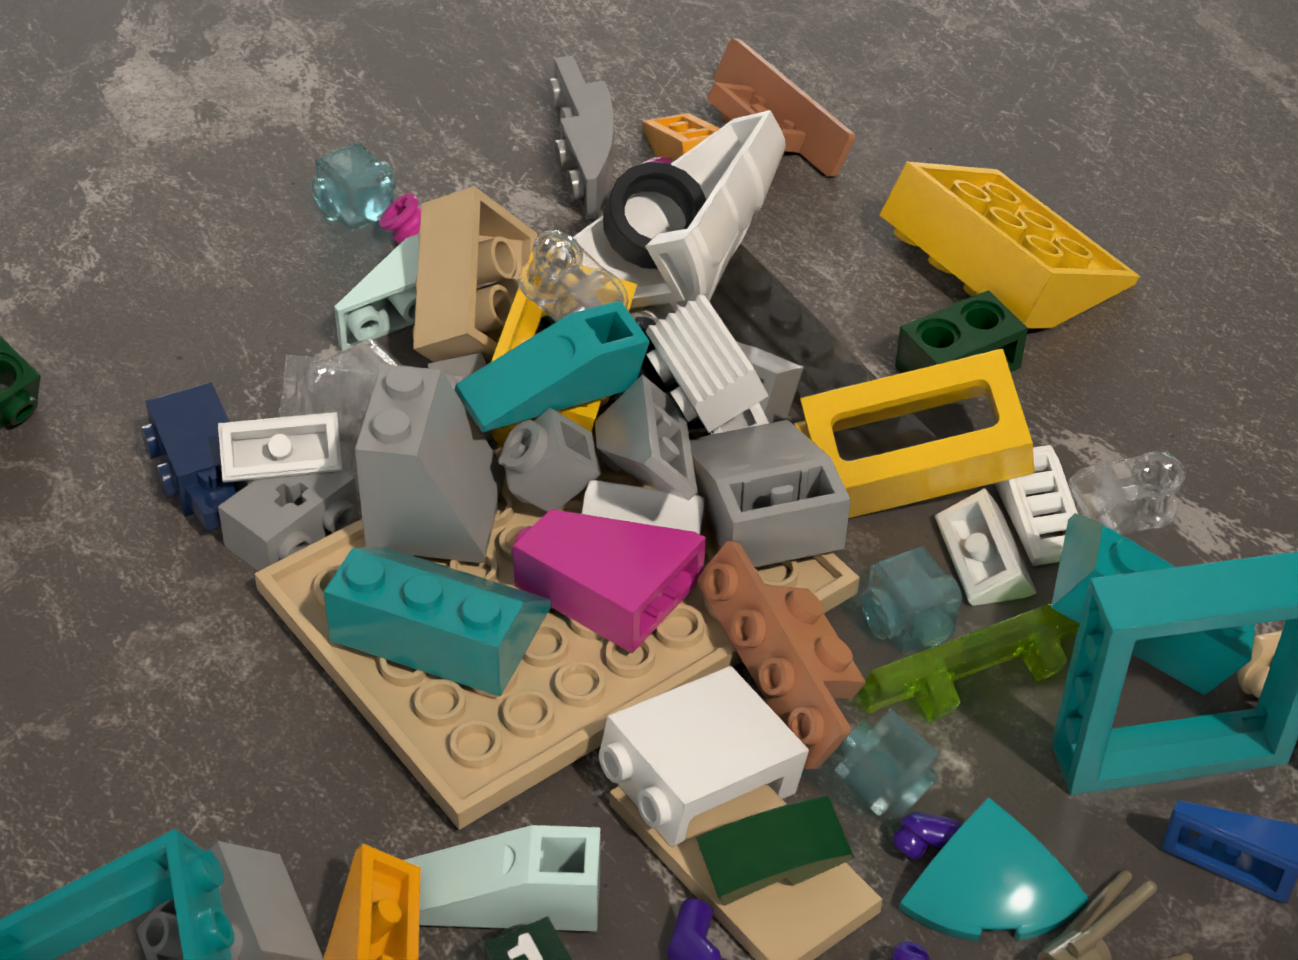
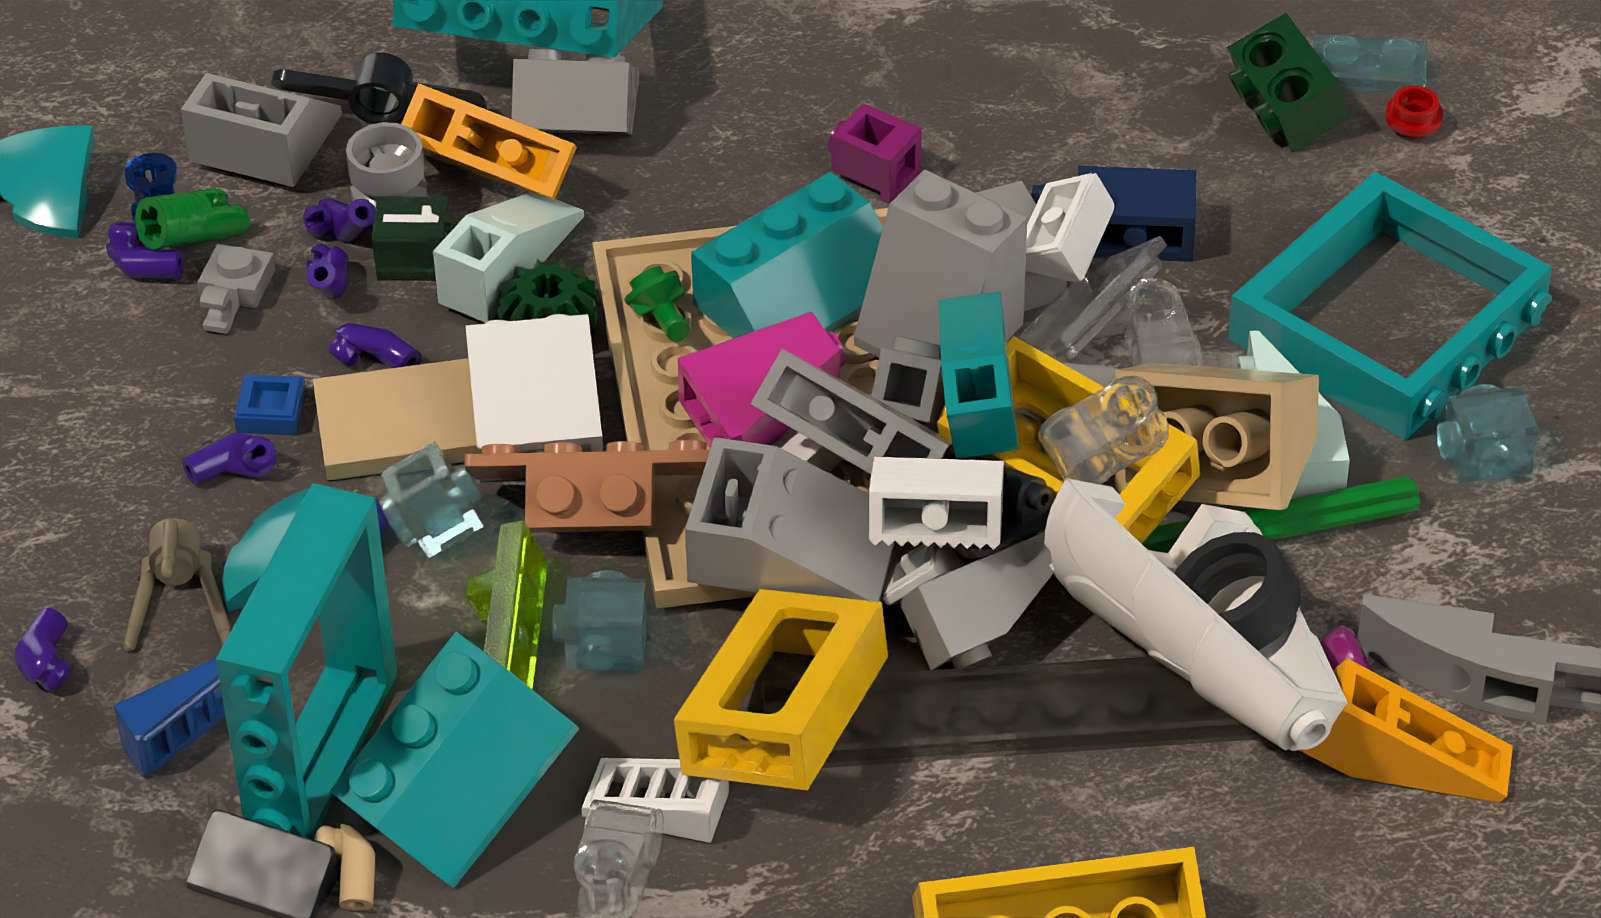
camera: 120 degrees right, 0 degrees up
(200, 664) = (876, 151): none -> magenta brick
(221, 328) = (1350, 376): none -> teal window
(402, 217) = (1411, 458): dark pink bush -> none
(521, 708) = (655, 294): none -> green plate
(567, 799) = (547, 292): none -> dark green gear
(752, 85) = (1446, 843): nougat bracket -> none
(774, 845) = (402, 395): dark green slope -> none
(961, 332) = (920, 825): dark green brick -> none
(984, 551) = (622, 728): white slope -> none

